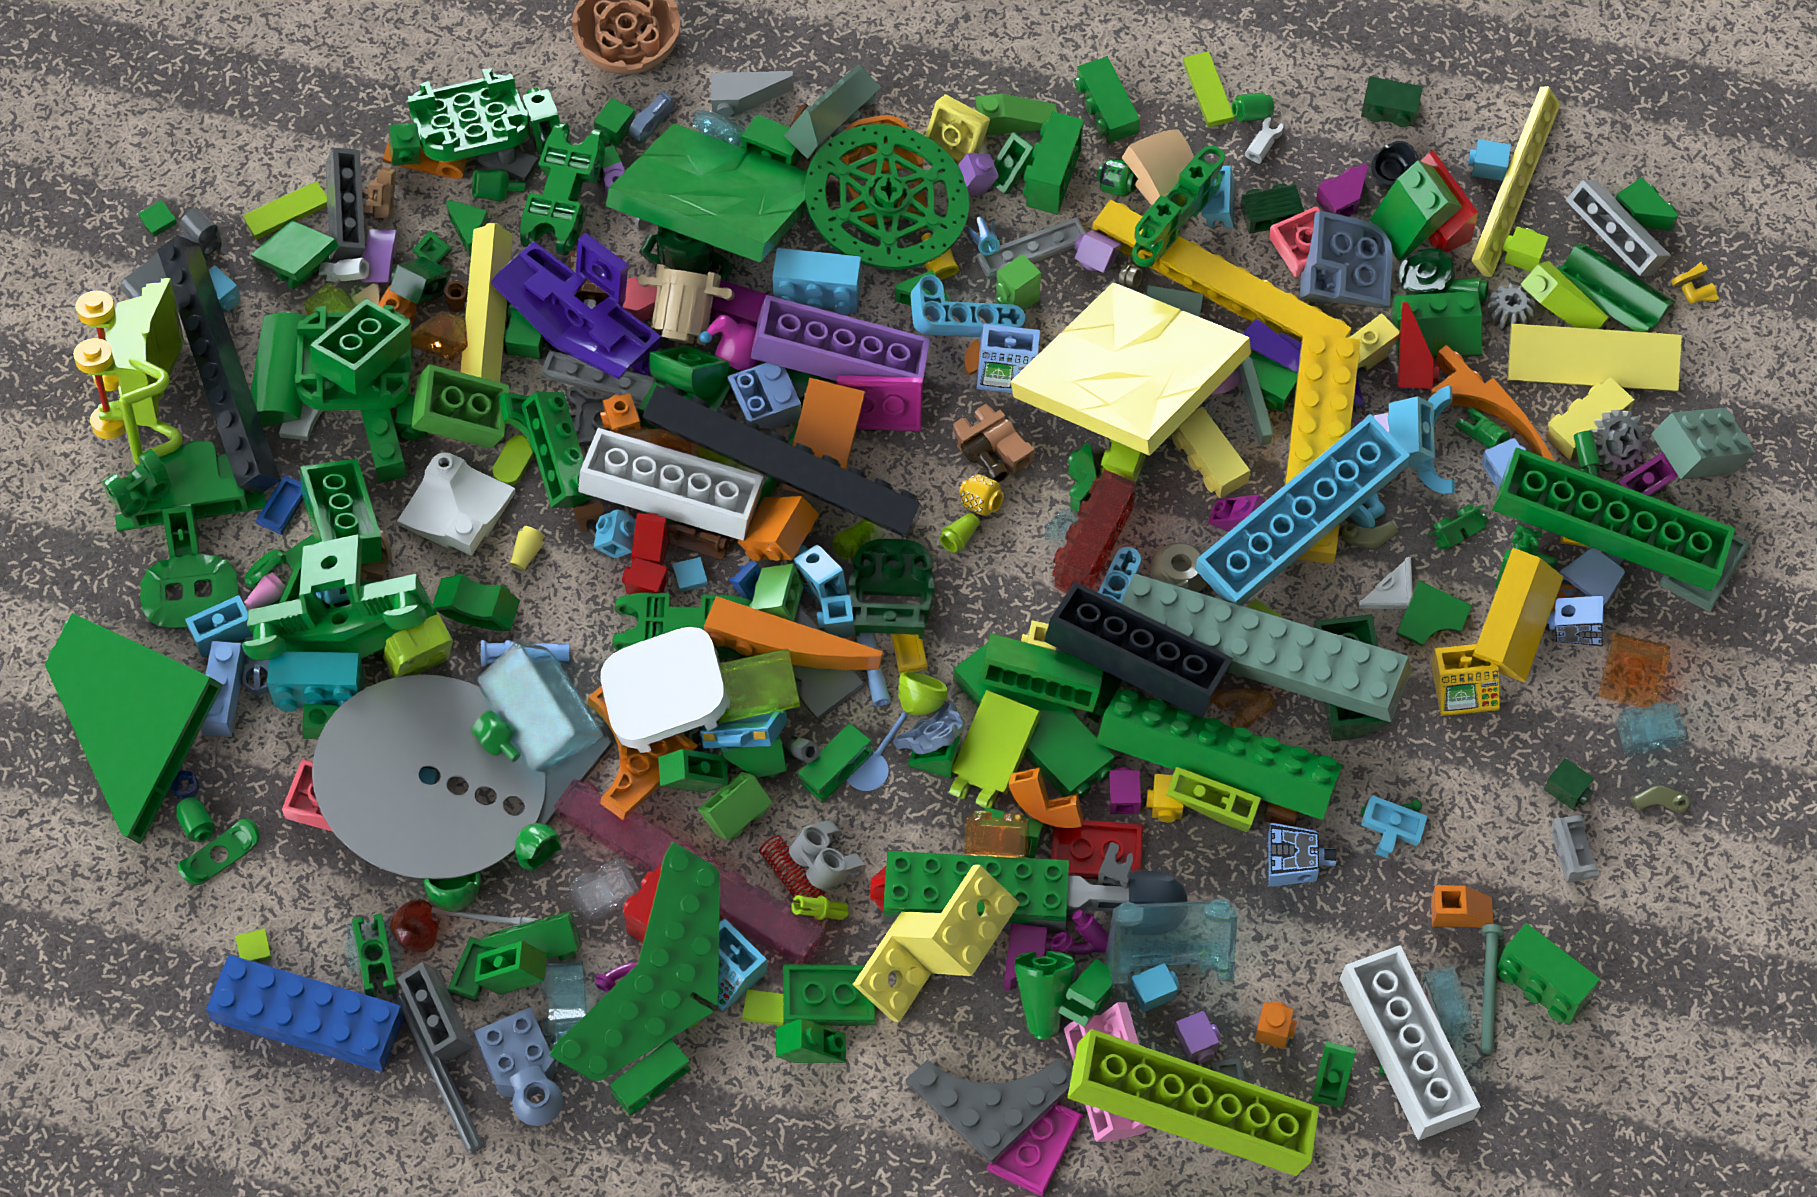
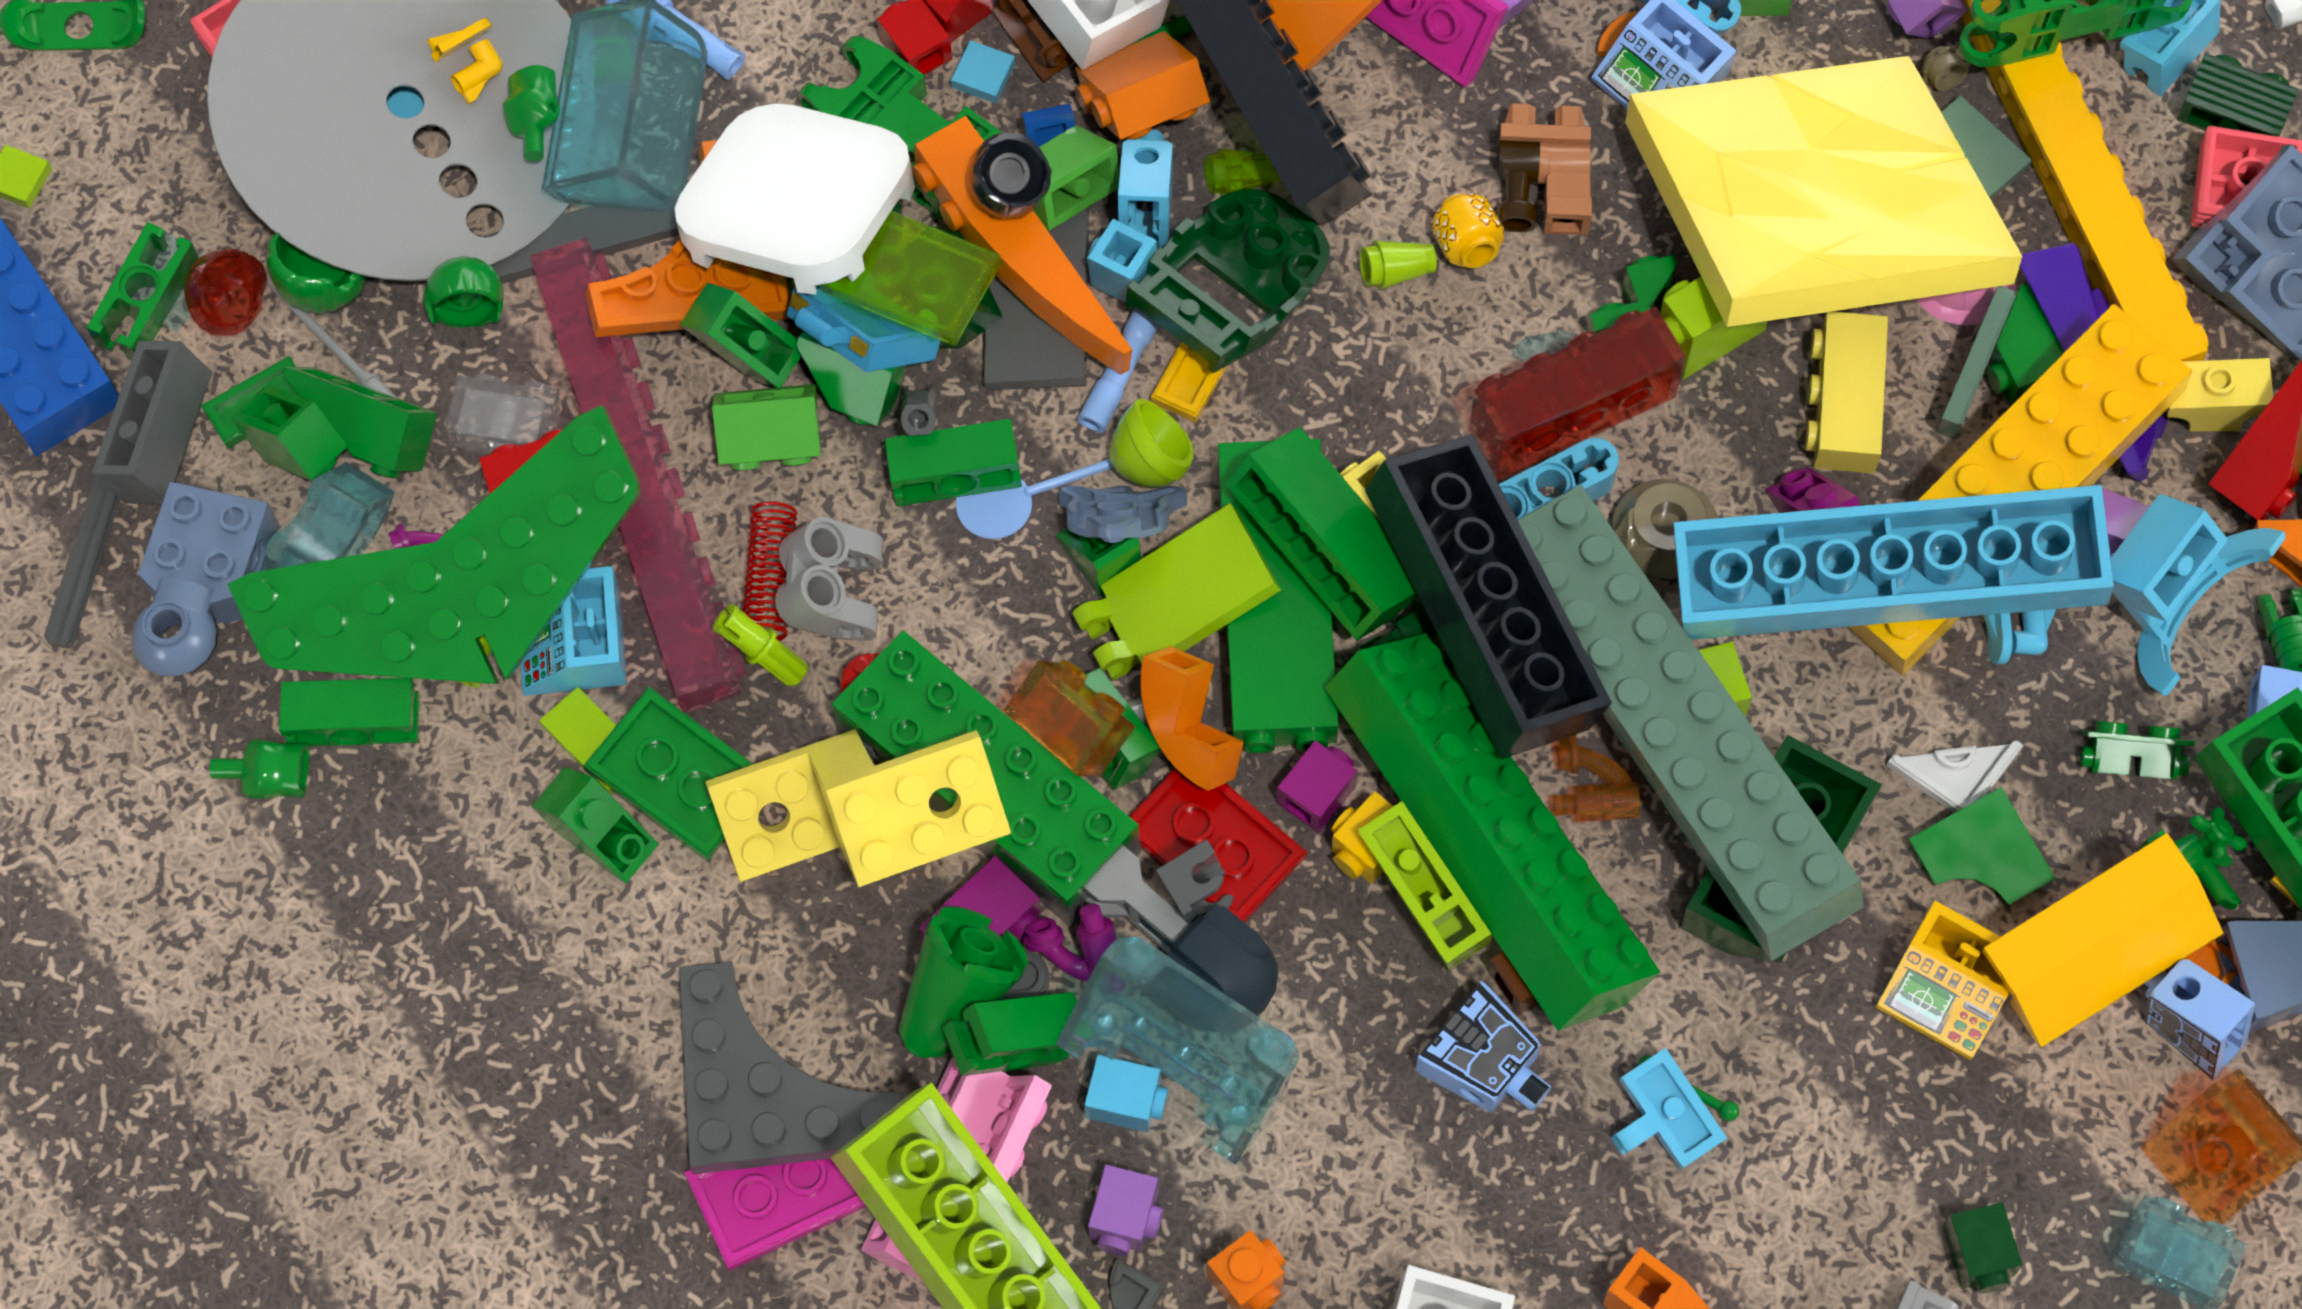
camera: 40 degrees right, 5 degrees up
(453, 741) = (488, 63): none -> yellow piece
(630, 1133) = (267, 769): none -> green piece
(766, 608) = (1009, 175): none -> black hair
(1368, 537) = (1984, 672): olive arm -> none

